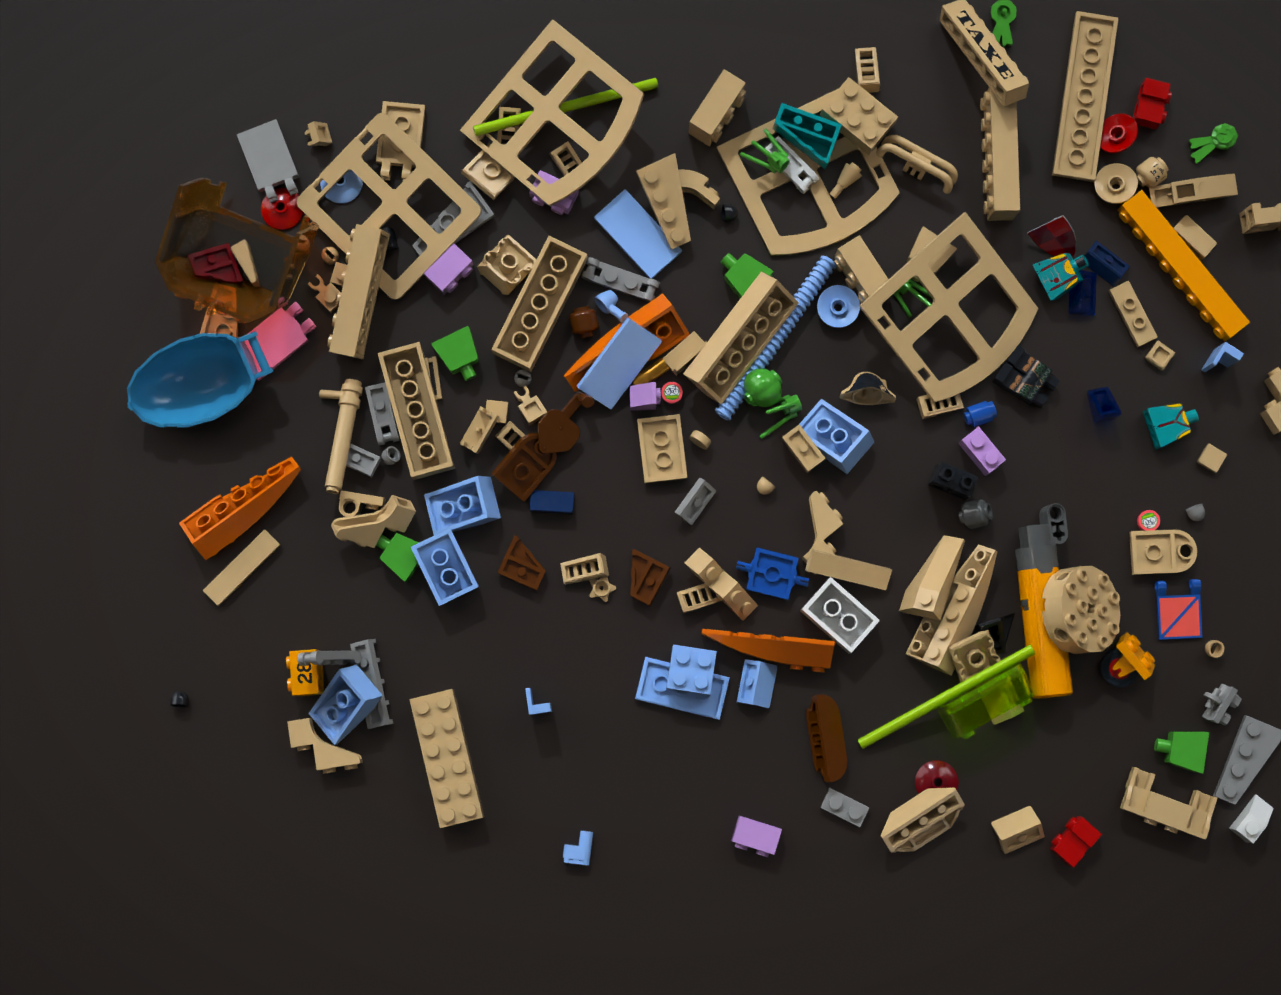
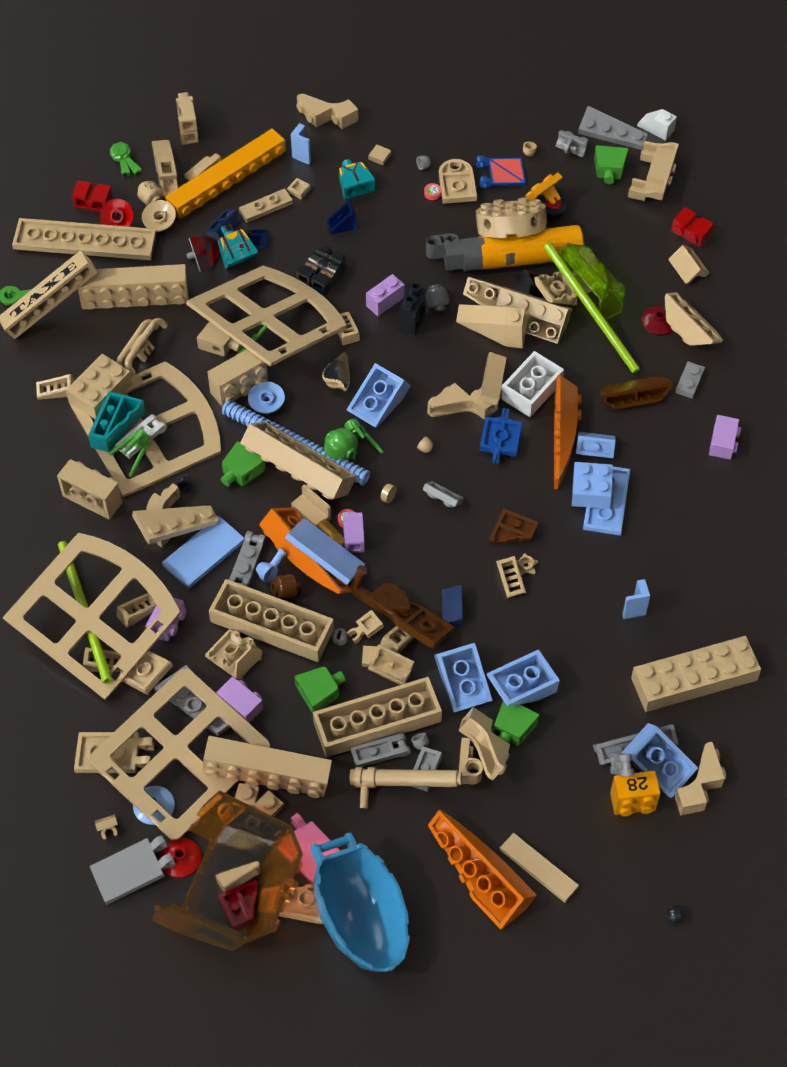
camera: 90 degrees left, 25 degrees down
(521, 565) = (512, 626): reddish brown wing -> none
(581, 853) = (762, 568): light blue piece -> none
(662, 448) = (398, 522): tan plate -> none
(683, 603) = (526, 501): tan slope -> none
(721, 583) = (516, 466): tan arch -> none
(803, 448) = (393, 415): tan panel -> none
(848, 176) = (150, 395): tan cone -> none
(980, 413) = (353, 298): blue brick -> none

